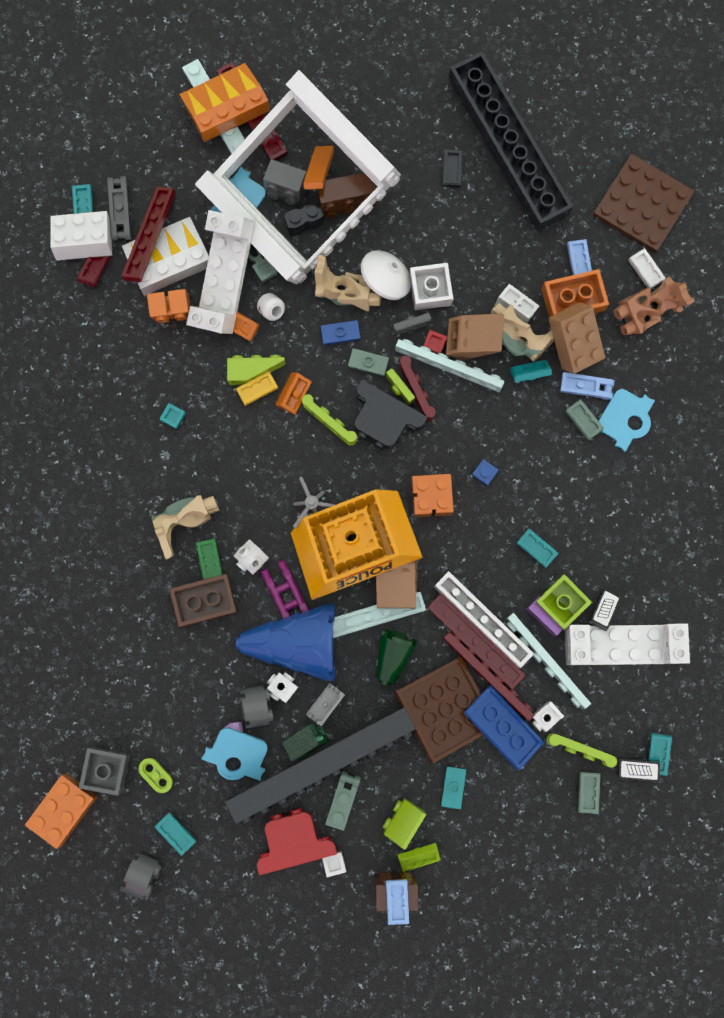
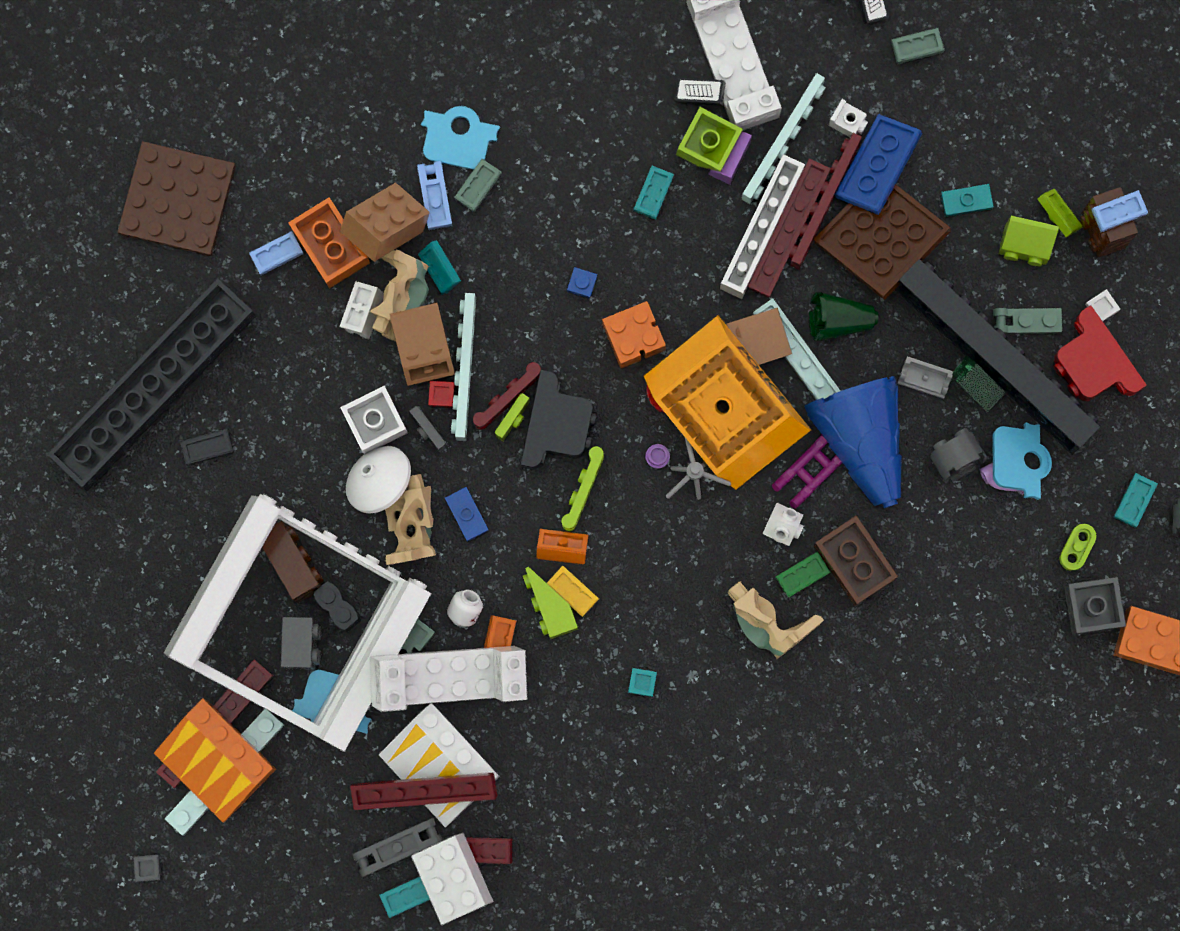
camera: 100 degrees left, 0 degrees up
(164, 307) = (507, 731): orange piece -> none
(169, 39) = (147, 868): none -> dark grey tile
(284, 694) = (926, 426): white brick -> none
(318, 167) = (268, 606): orange tile -> none
(335, 483) = (657, 456): none -> medium lavender plate
(368, 362) = (493, 467): sand green plate -> none
(589, 753) = (871, 79): lime plate -> none
(633, 309) = (318, 164): nougat hips -> none
(646, 269) = (262, 168): white plate -> none

